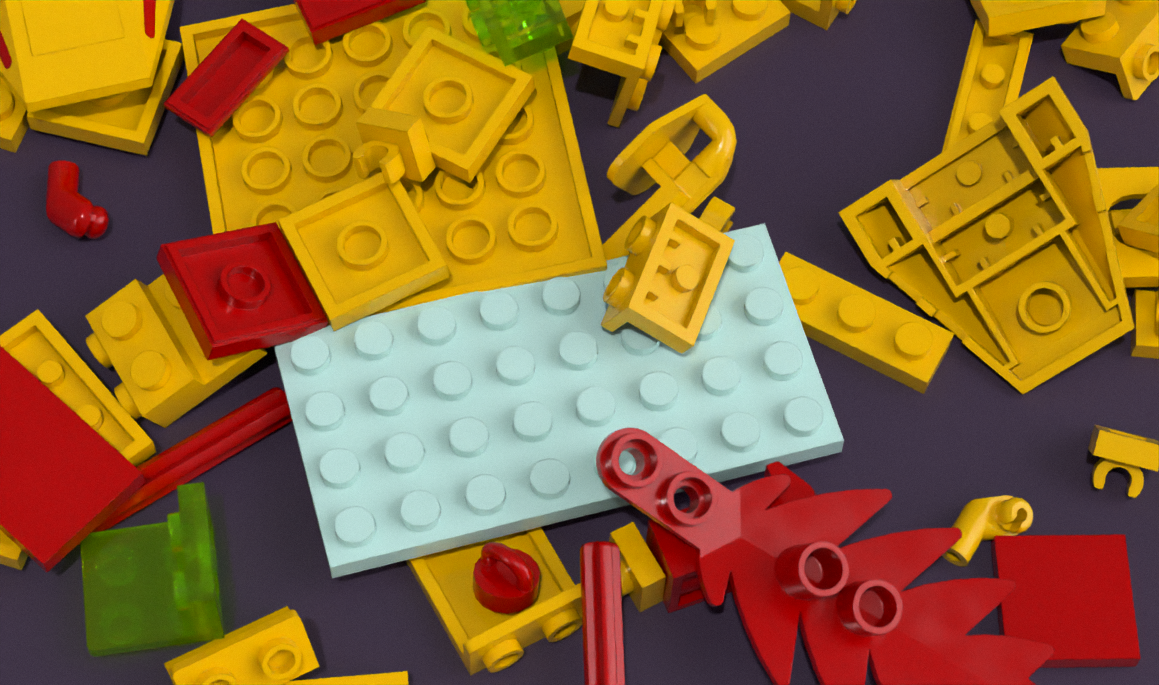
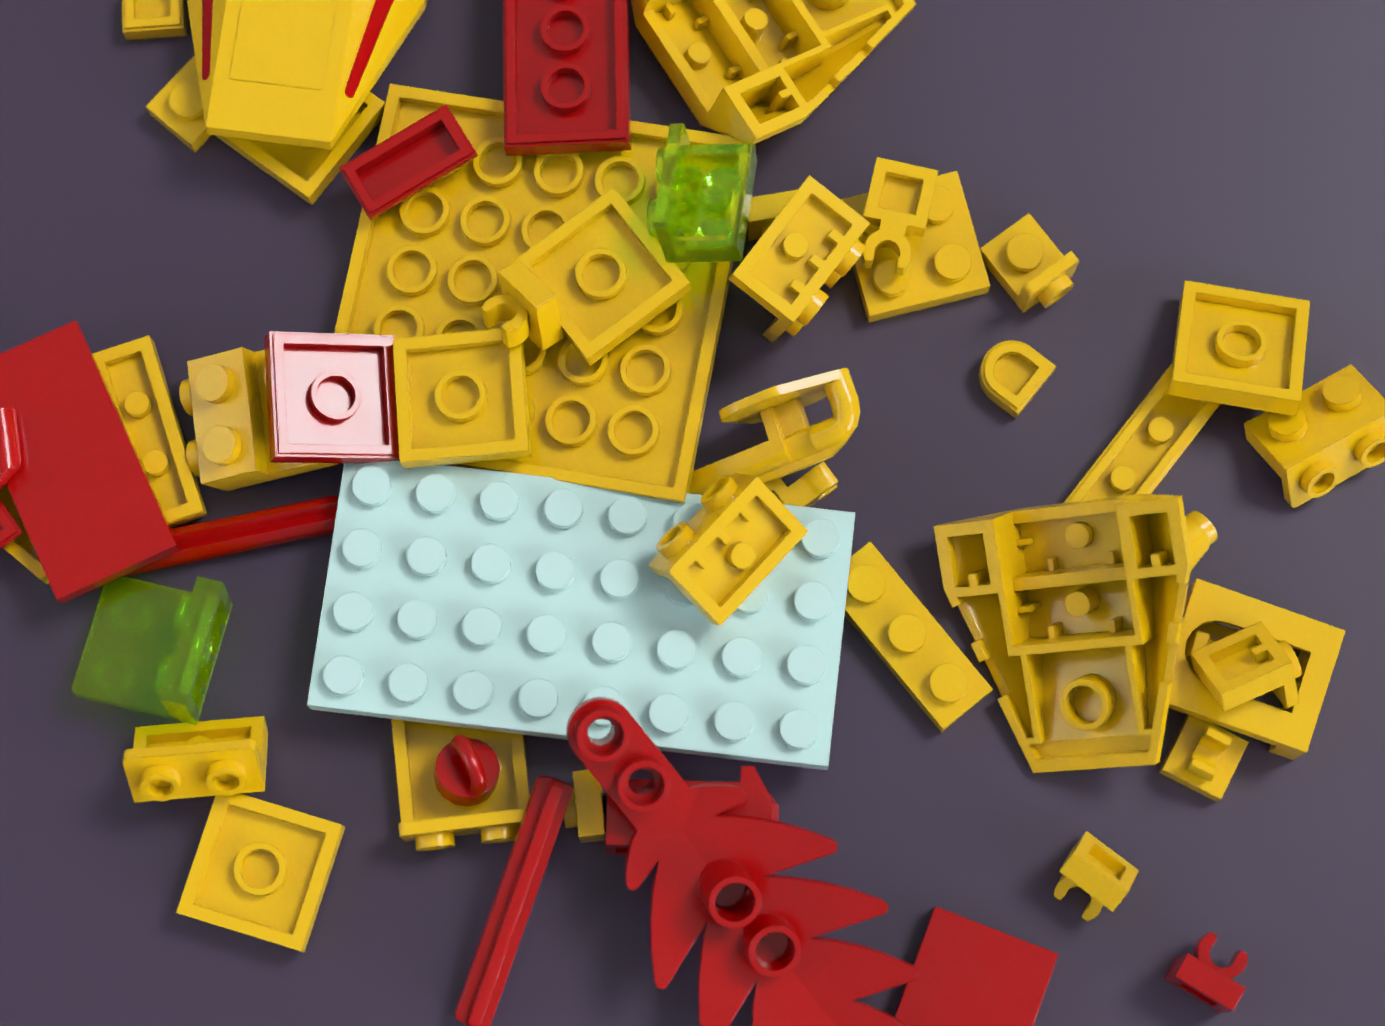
camera: 25 degrees right, 15 degrees up
(69, 208) = (217, 233): red arm -> none
(843, 78) = (1013, 375): none -> yellow tile
(987, 518) = (935, 885): yellow arm -> none

